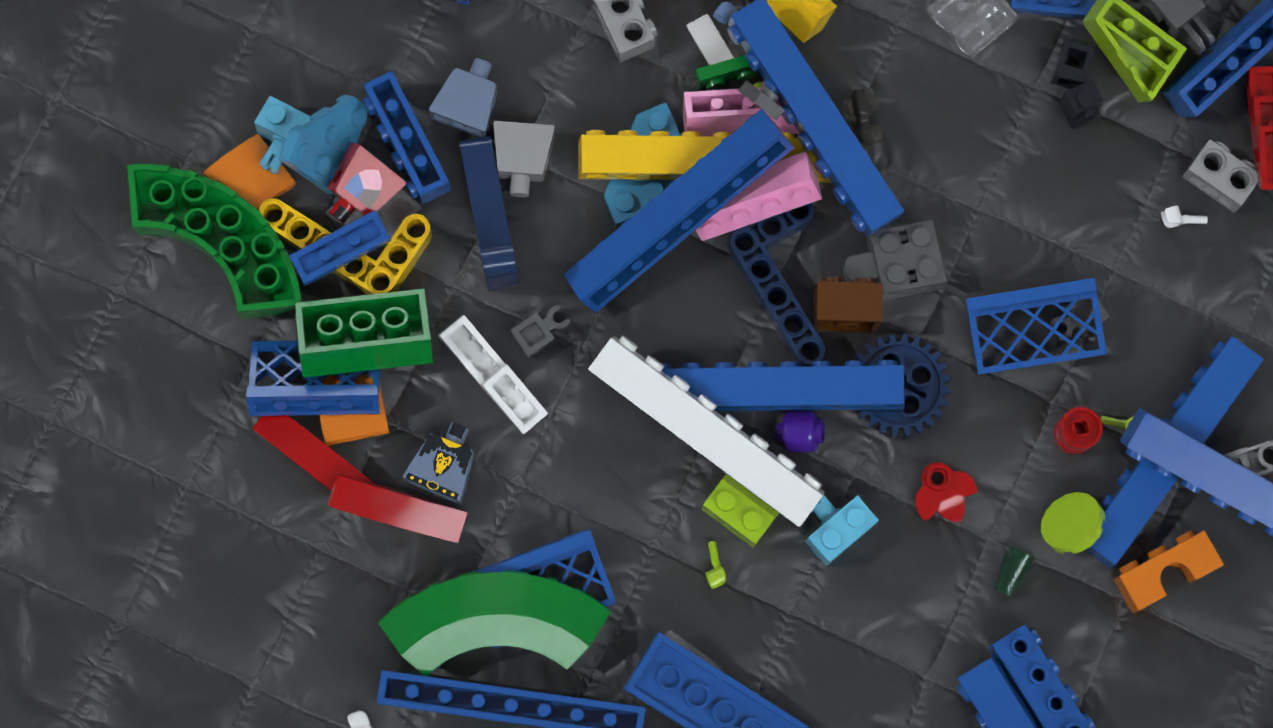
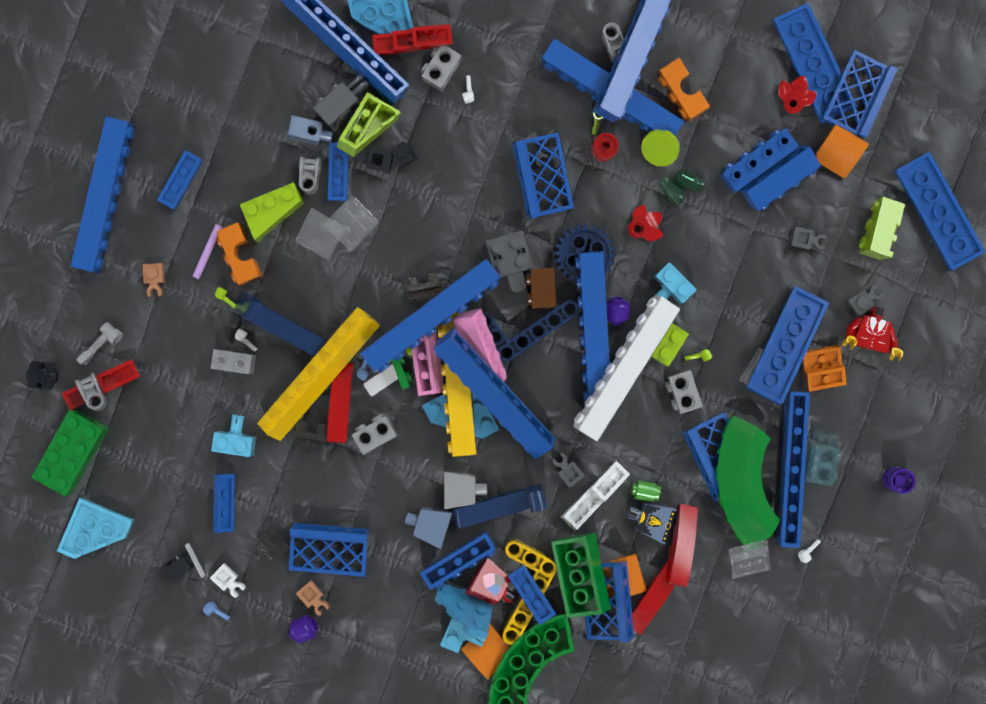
camera: 85 degrees left, 10 degrees up
(362, 619) = (749, 559): none -> clear slope
(493, 456) = (645, 491): none -> bright green brick
(658, 542) = (689, 389): none -> light grey brick
(762, 98) = (424, 349): dark grey plate -> none
(996, 541) = (673, 193): none -> clear green cone

